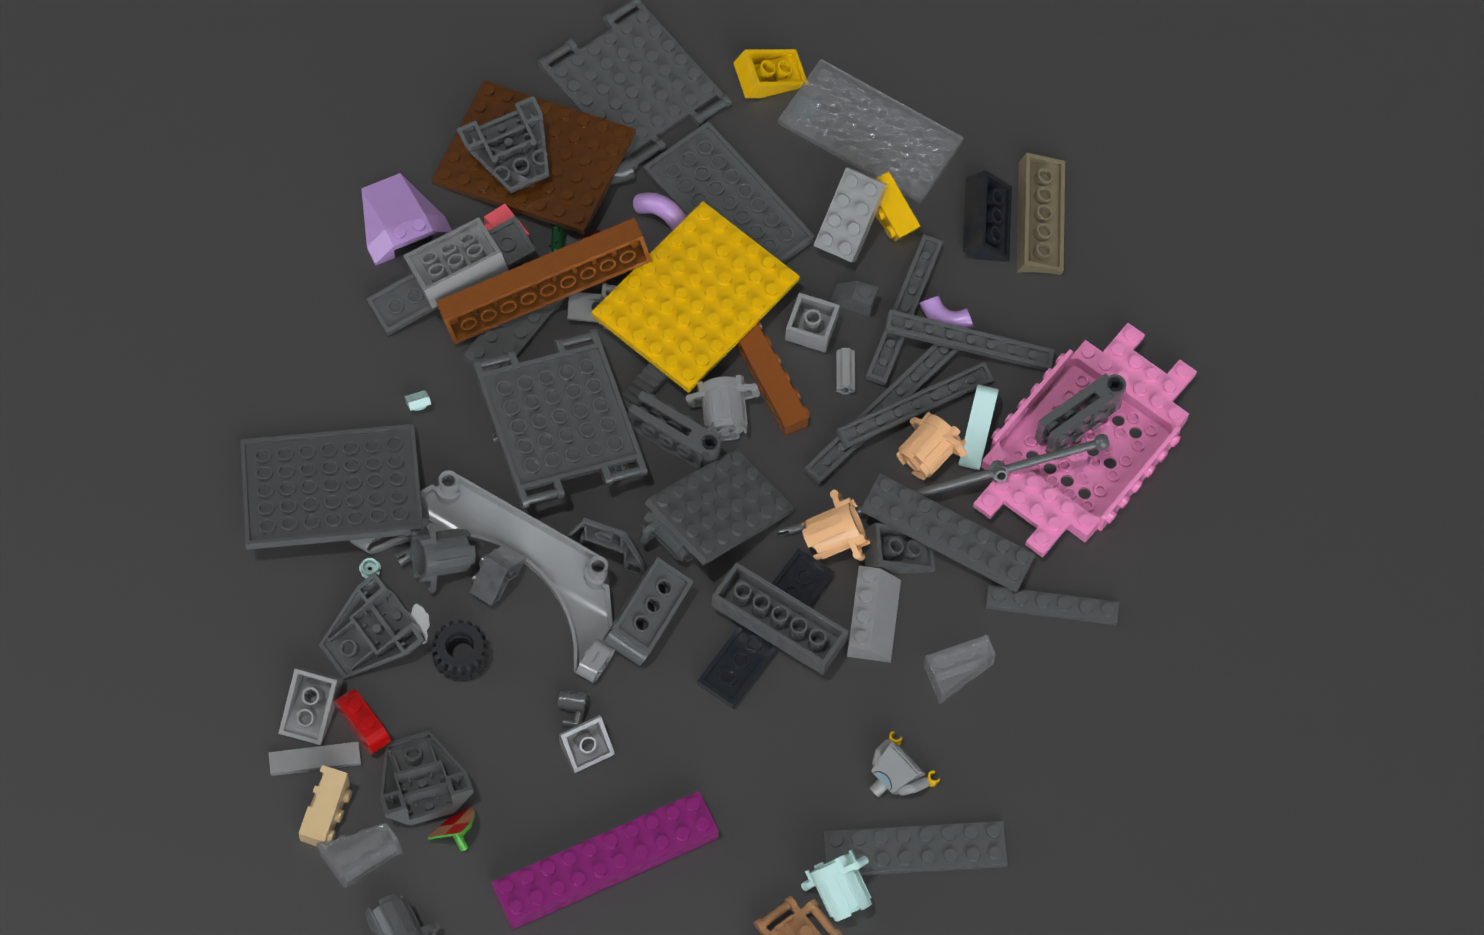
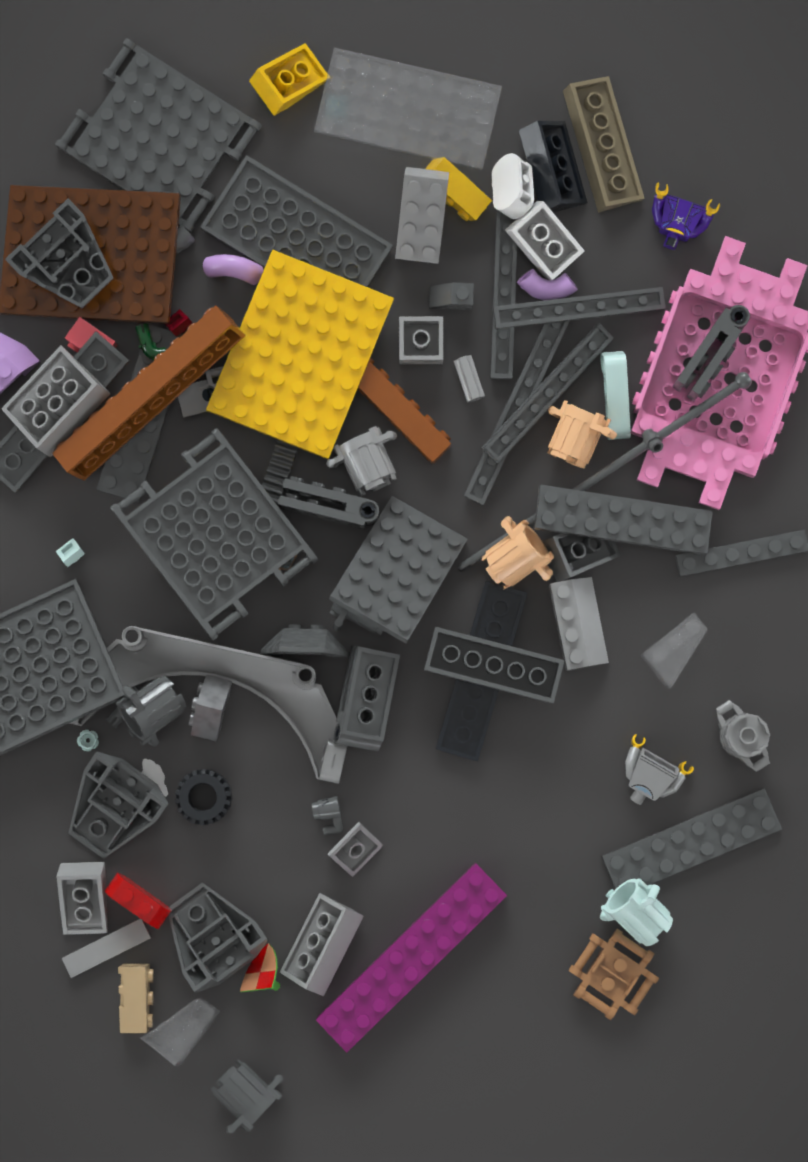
camera: 15 degrees left, 20 degrees up
(523, 821) = (321, 944): none -> light grey slope
(943, 218) = (512, 186): none -> white brick
(957, 272) = (545, 240): none -> white brick
(999, 762) = (743, 735): none -> light grey container
(1090, 296) = (679, 218): none -> torso

